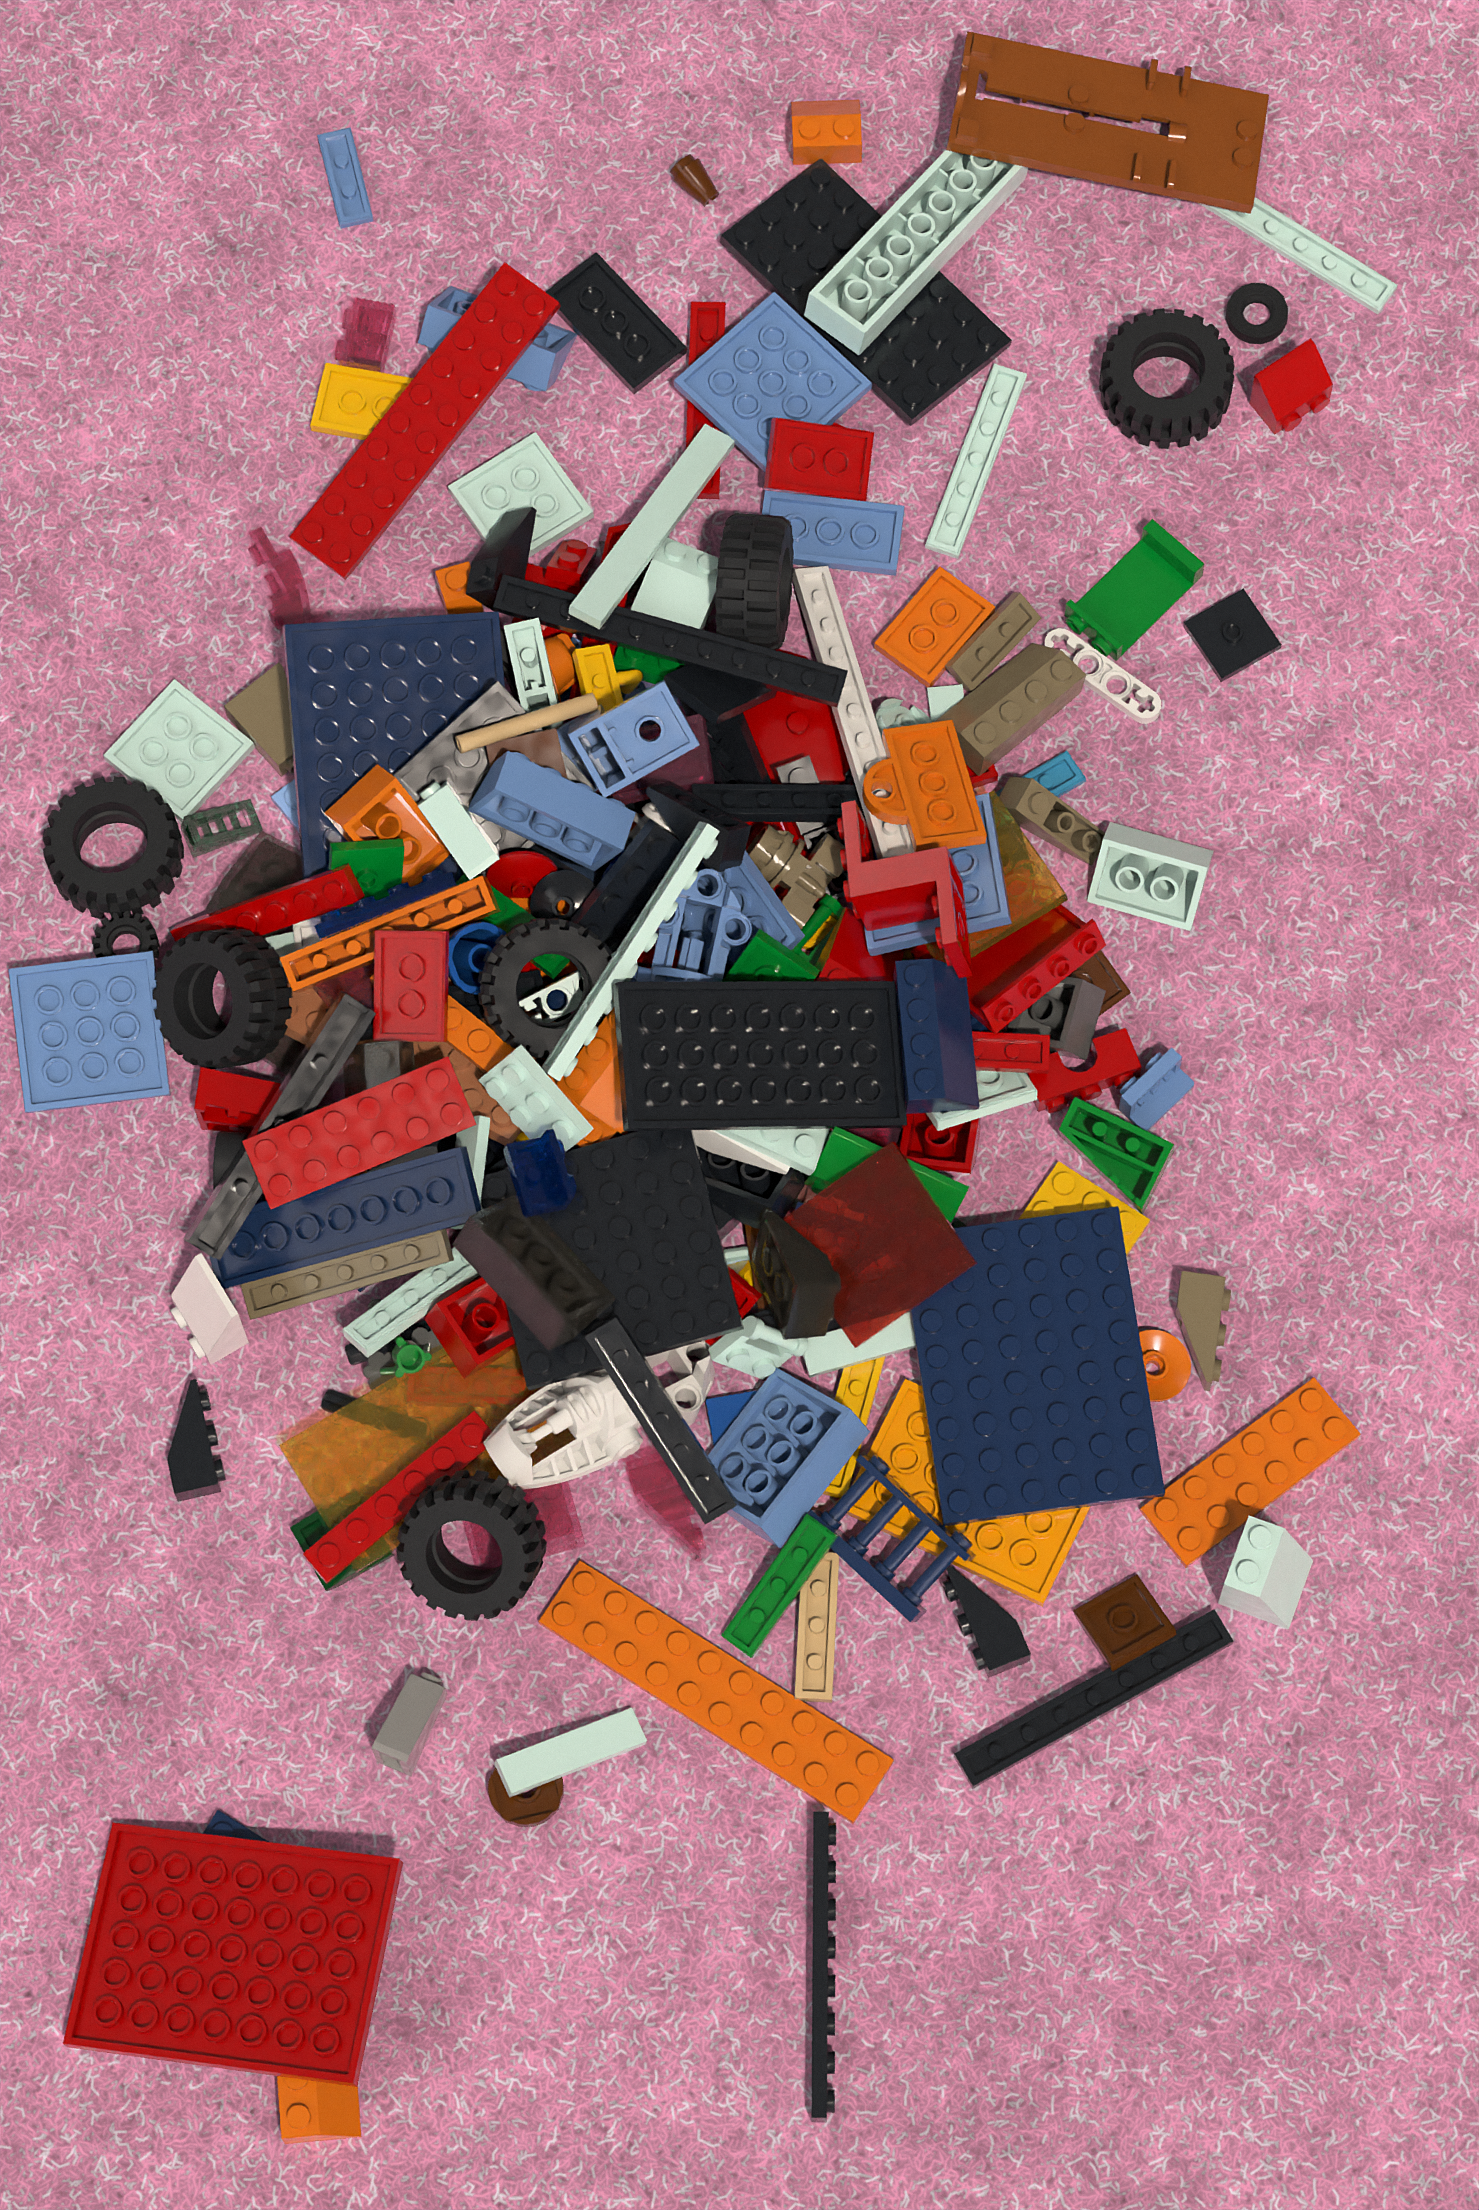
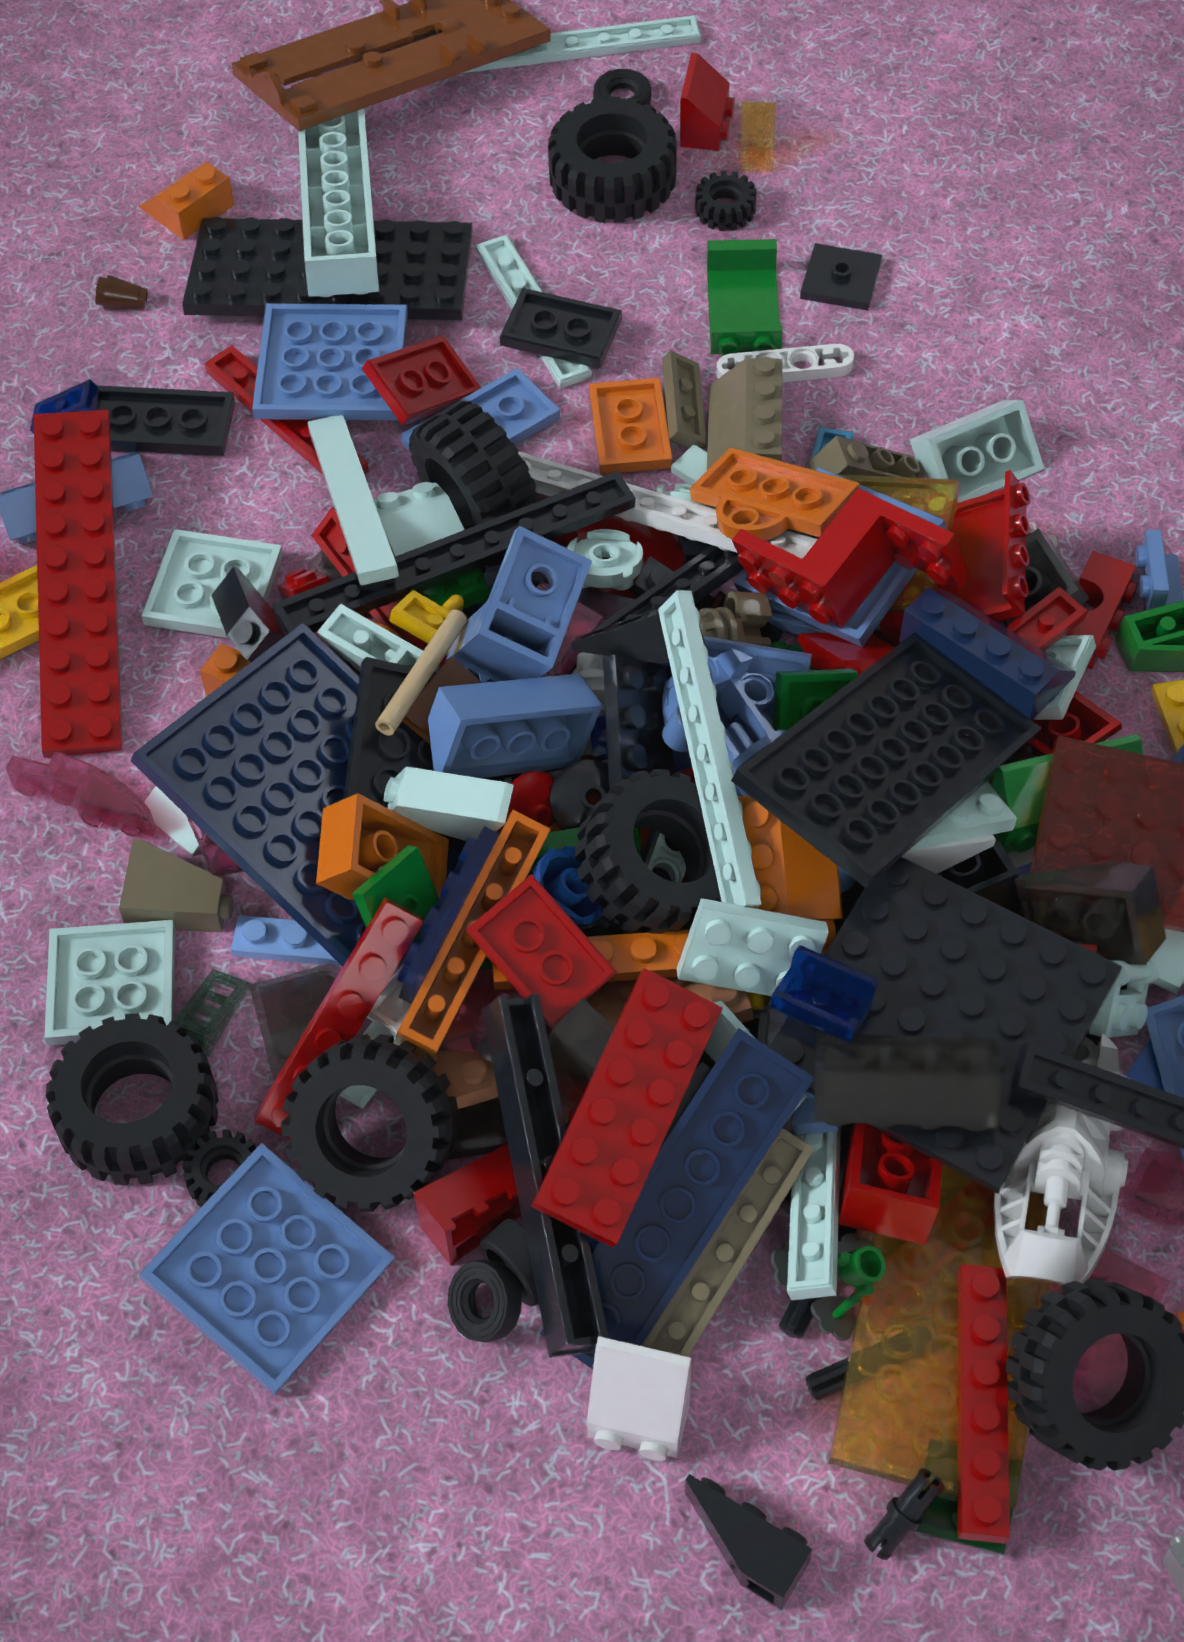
camera: 45 degrees left, 15 degrees down
(178, 1164) = (506, 1300): none -> black tyre
(290, 1515) = (904, 1513): none -> black pin
(555, 258) = (75, 399): none -> clear blue plate
(773, 747) = (623, 563): none -> light aqua plate
(972, 498) = (561, 328): none -> black tile
(1223, 471) = (725, 187): none -> black tyre
(1304, 453) = (757, 136): none -> clear yellow slope

